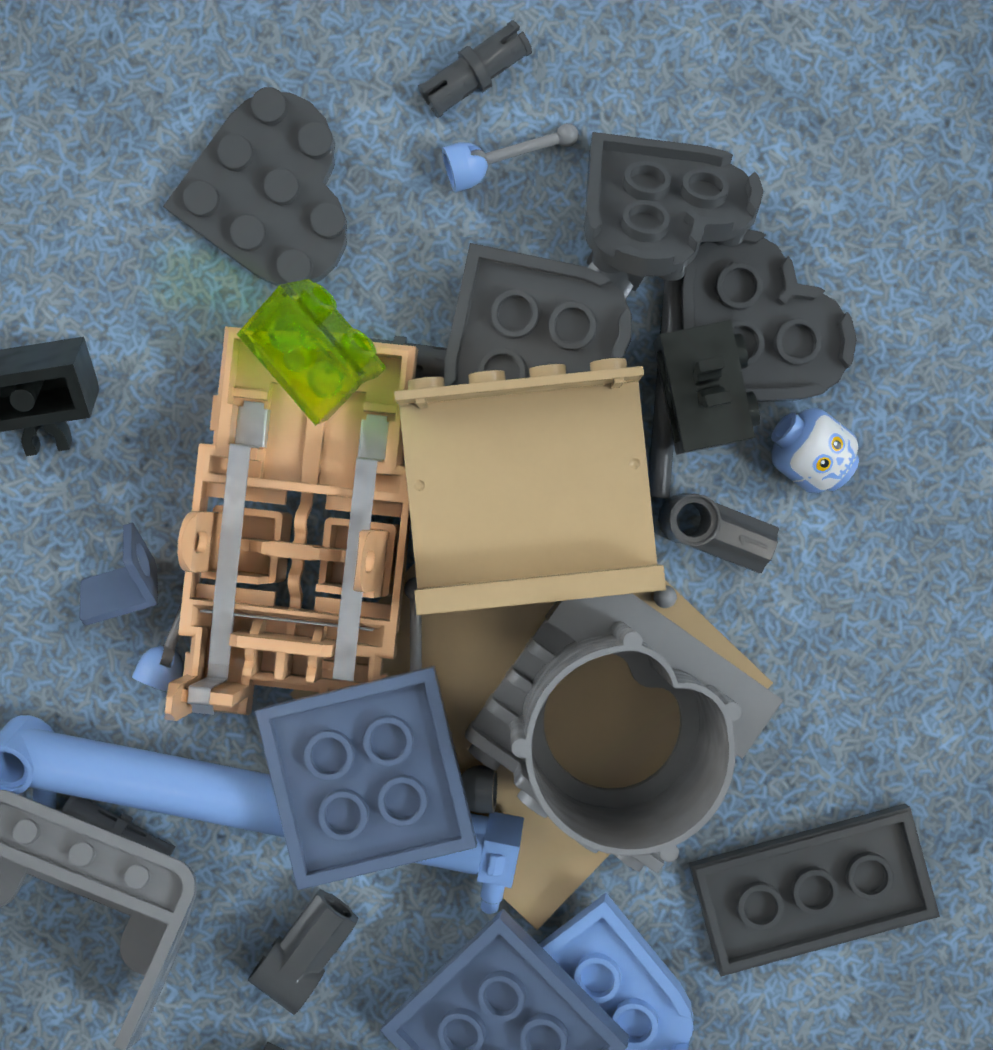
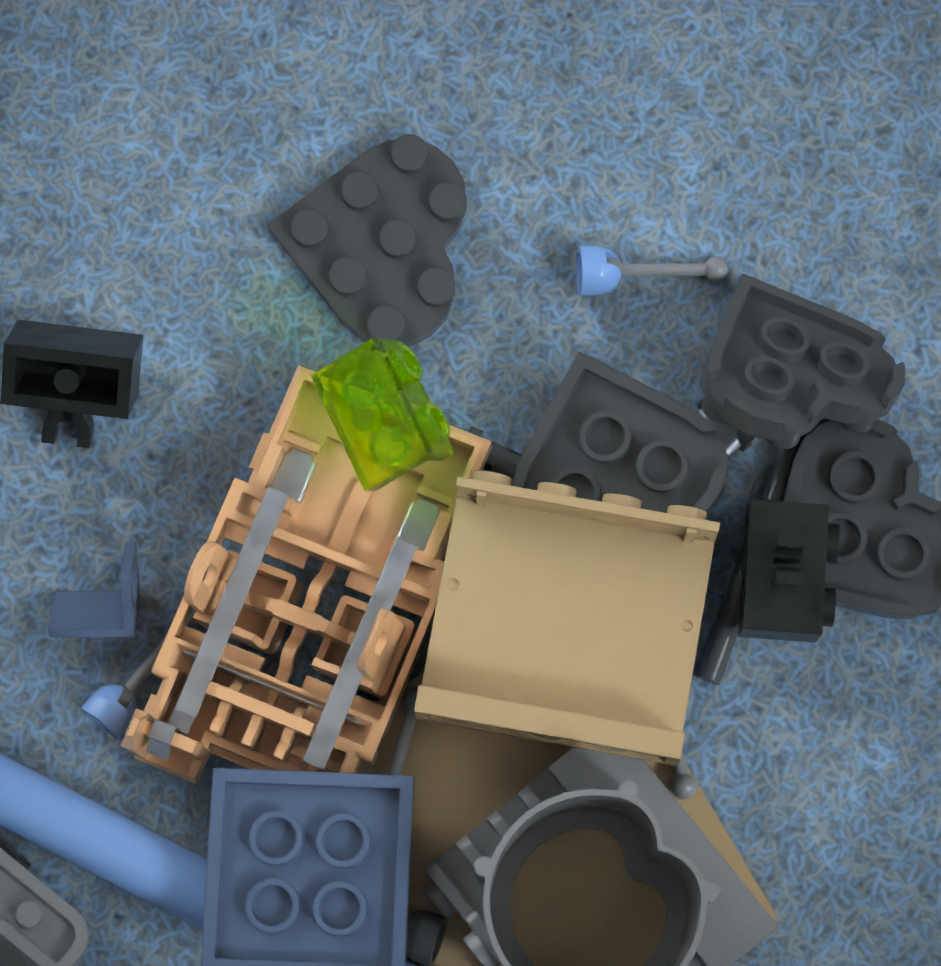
camera: 25 degrees right, 10 degrees down
(475, 68) = (636, 175): dark grey pin -> none
(721, 532) = (767, 736): dark grey piece -> none
(814, 450) = (889, 675): head -> none

